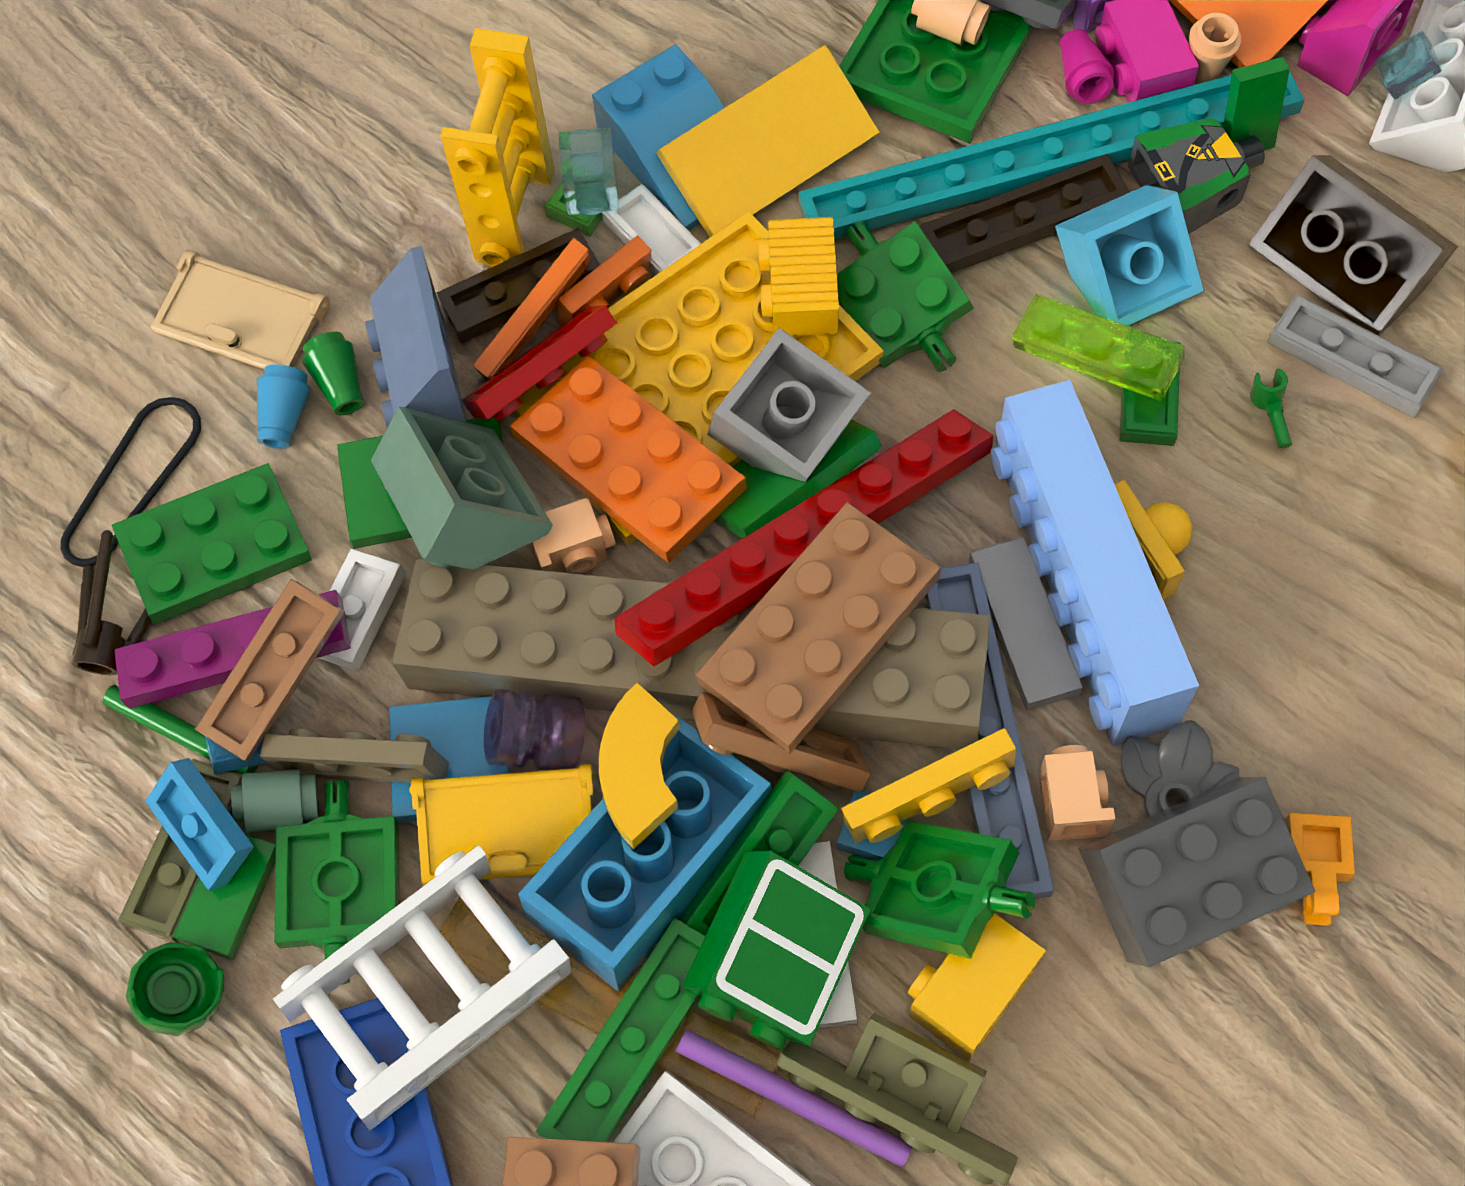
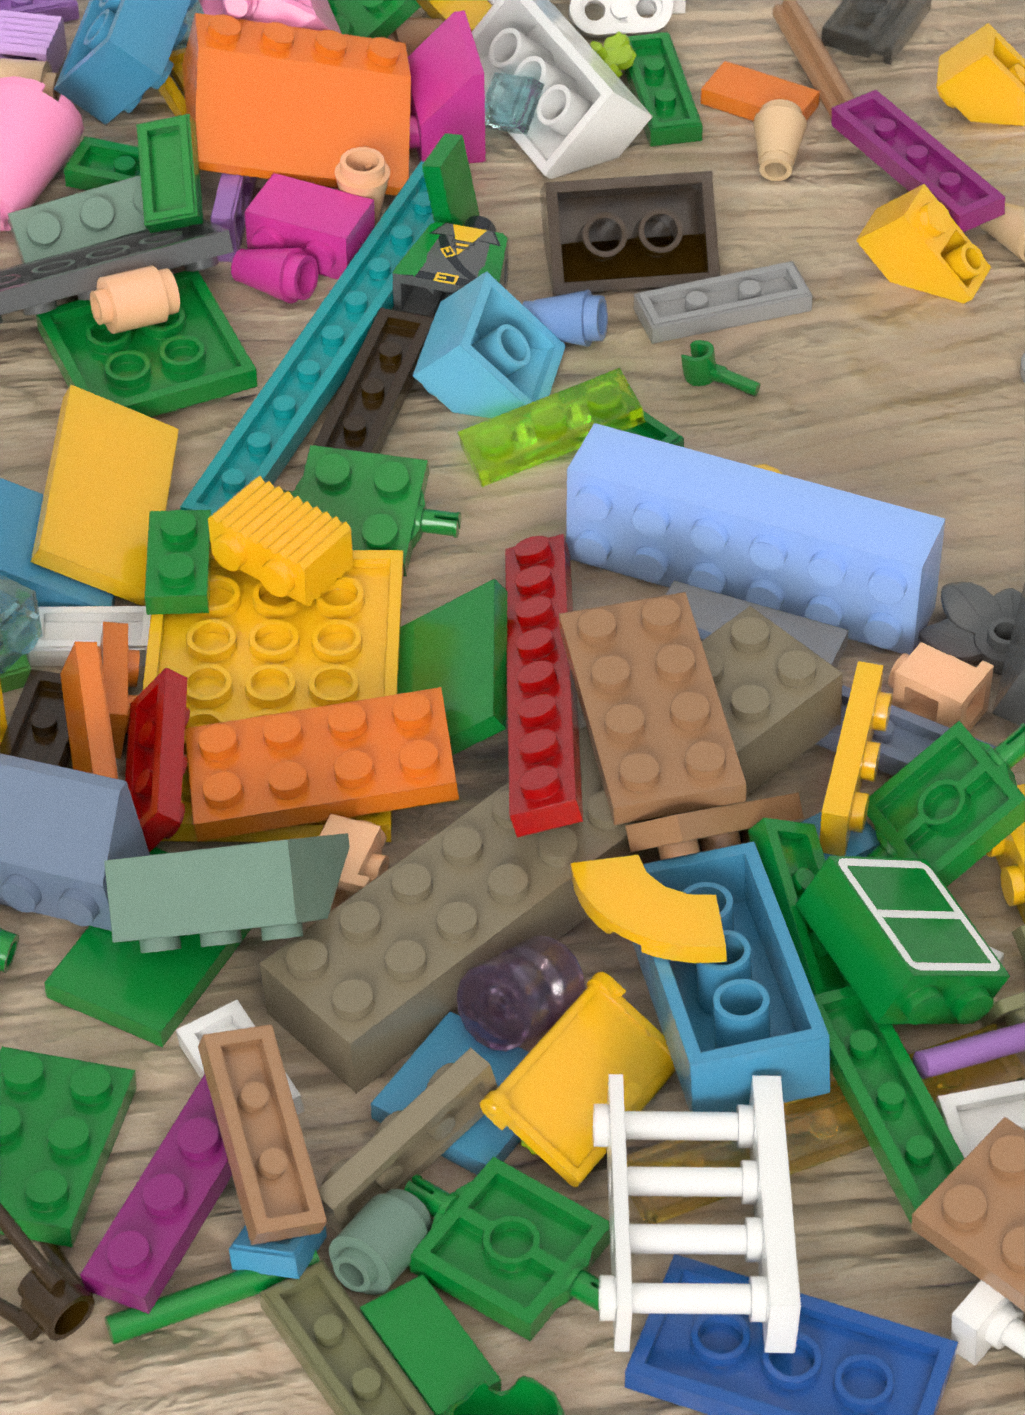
camera: 55 degrees left, 20 degrees down
(199, 824) = (351, 1302): dark azure plate -> none
(733, 234) = (178, 562): none -> green plate
(786, 409) = (407, 620): light grey slope -> none
(1225, 274) = (573, 316): none -> medium blue cone

